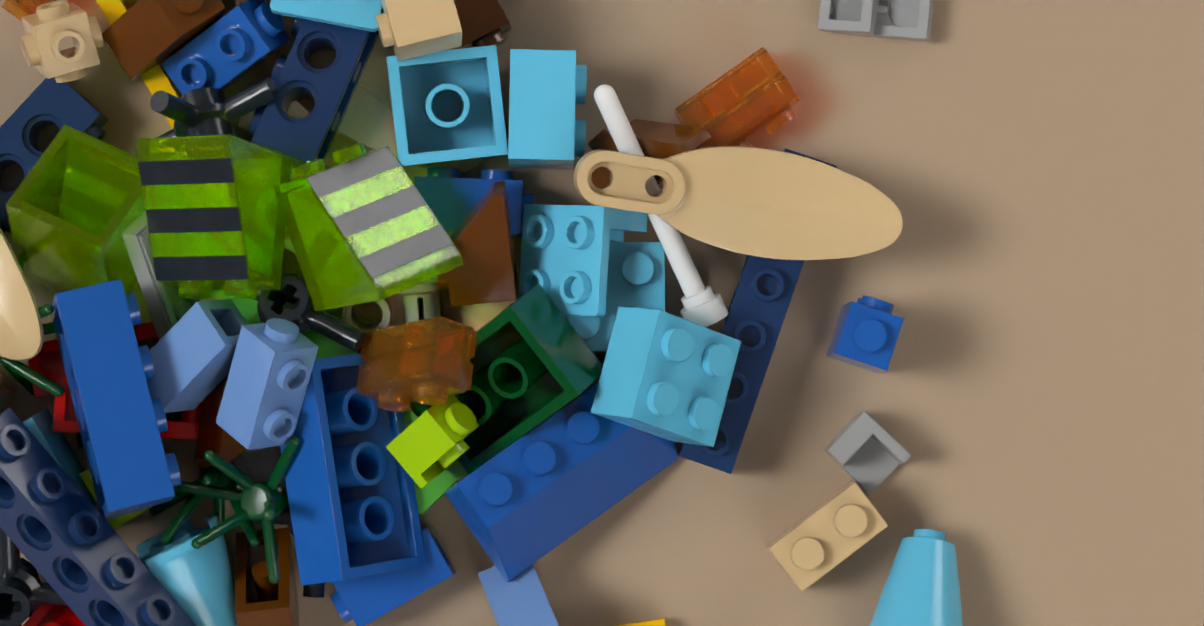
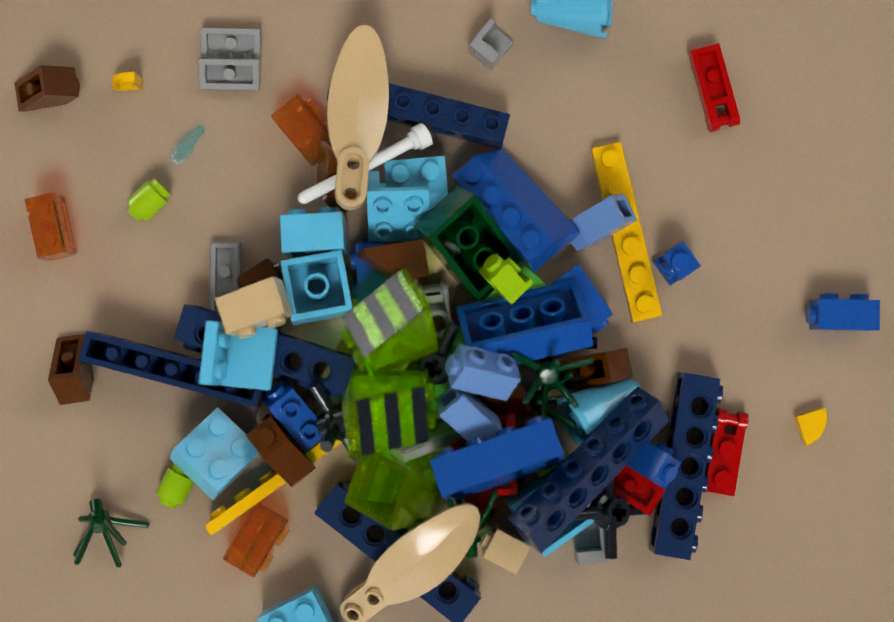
camera: 90 degrees left, 0 degrees up
(44, 33) = (294, 518): tan brick -> none
(416, 363) = (463, 289): clear orange brick -> none
(666, 376) = (459, 150): medium azure brick -> none
(826, 535) = (539, 61): tan brick -> none
(866, 334) = (426, 46): blue brick -> none

